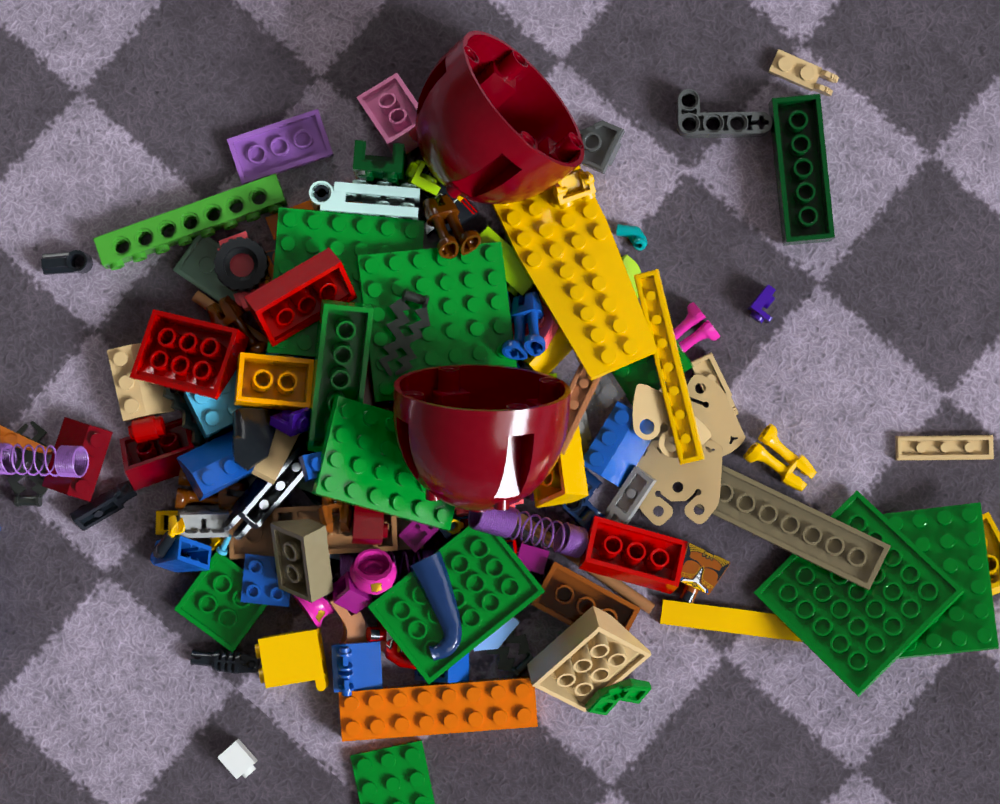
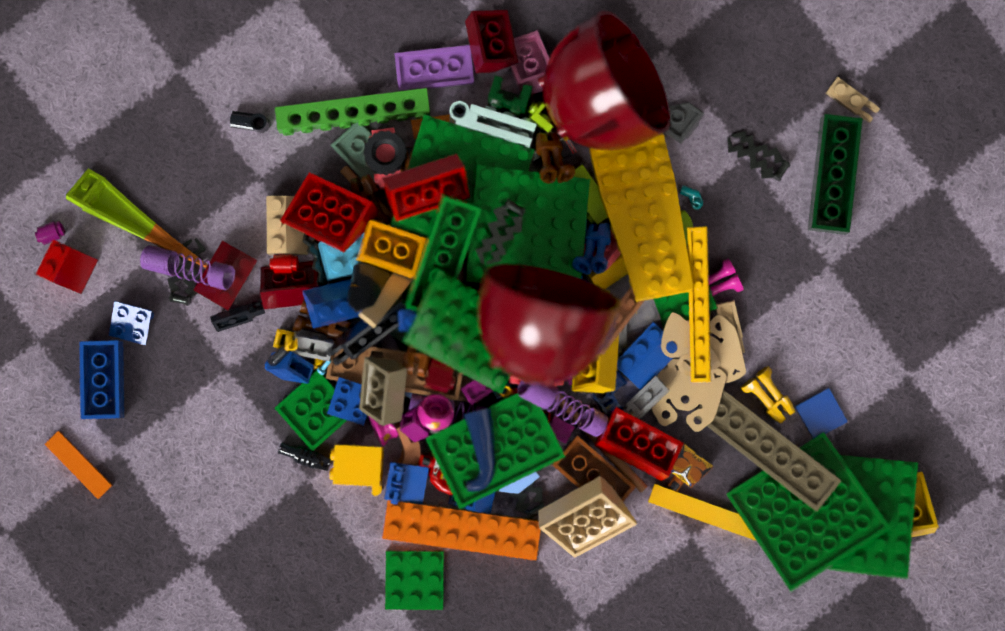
camera: 10 degrees right, 0 degrees up
(238, 760) = (298, 535): white brick -> none
(291, 421) = (398, 283): dark purple bracket -> none
(342, 97) = (491, 40): none -> dark red slope
(574, 186) = (656, 149): yellow piece -> none
(627, 690) = (611, 548): green tile -> none
(692, 165) = (751, 152): none -> pearl dark grey piece
(722, 118) = (782, 122): dark grey beam -> none
(764, 300) = (783, 269): dark purple bracket -> none
(848, 467) = (821, 413): none -> blue tile
(944, 447) = (898, 414): tan tile -> none

